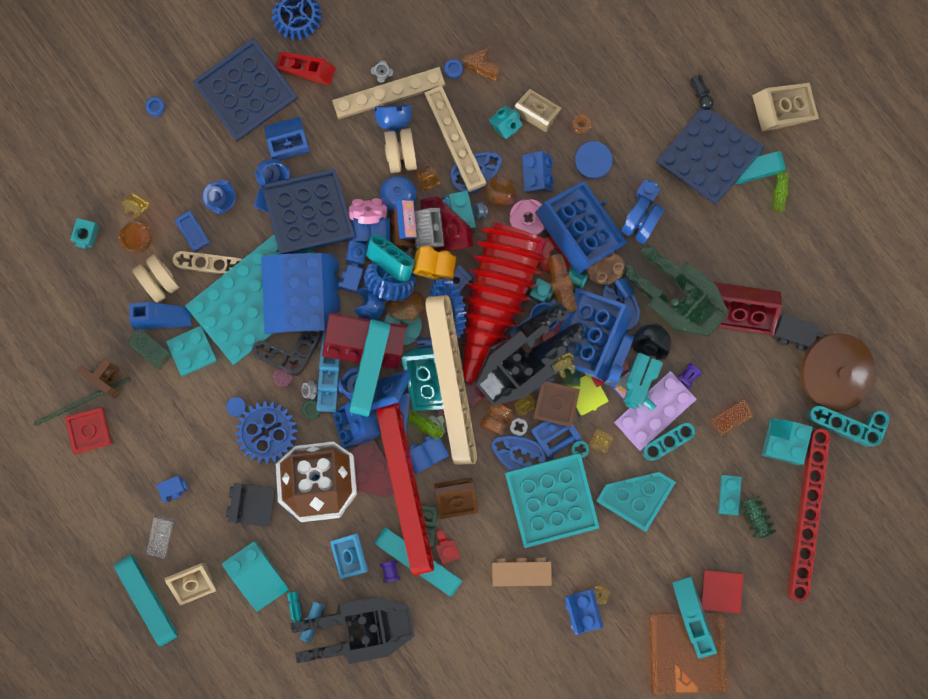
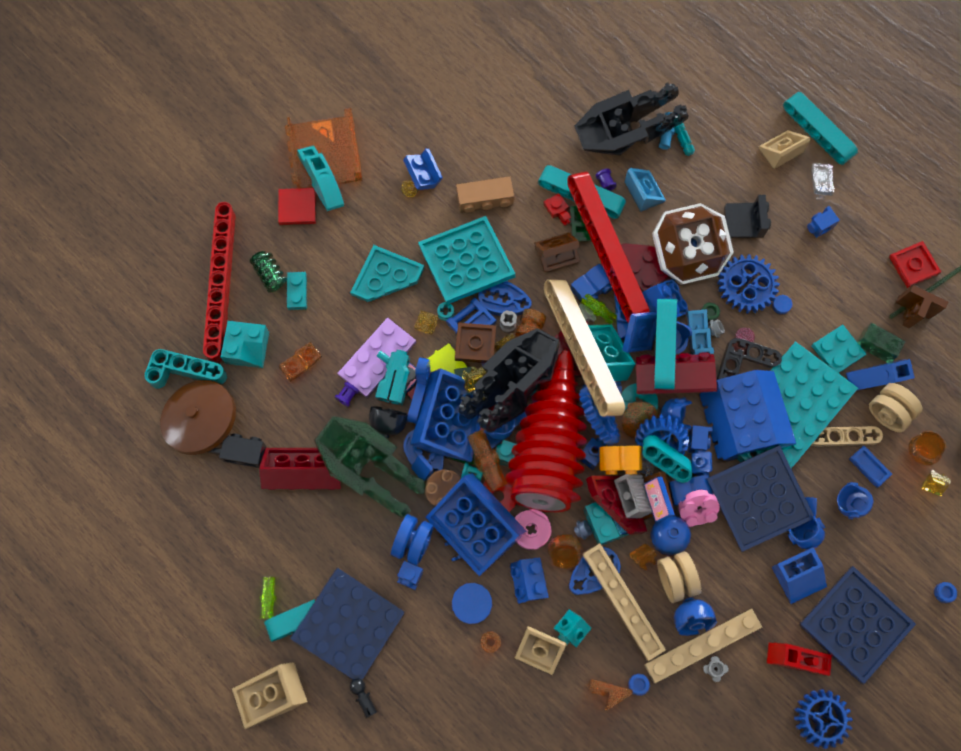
camera: 170 degrees right, 10 degrees down
(255, 576) = (728, 161): teal slope -> none
(677, 439) = (358, 336): teal beam -> none

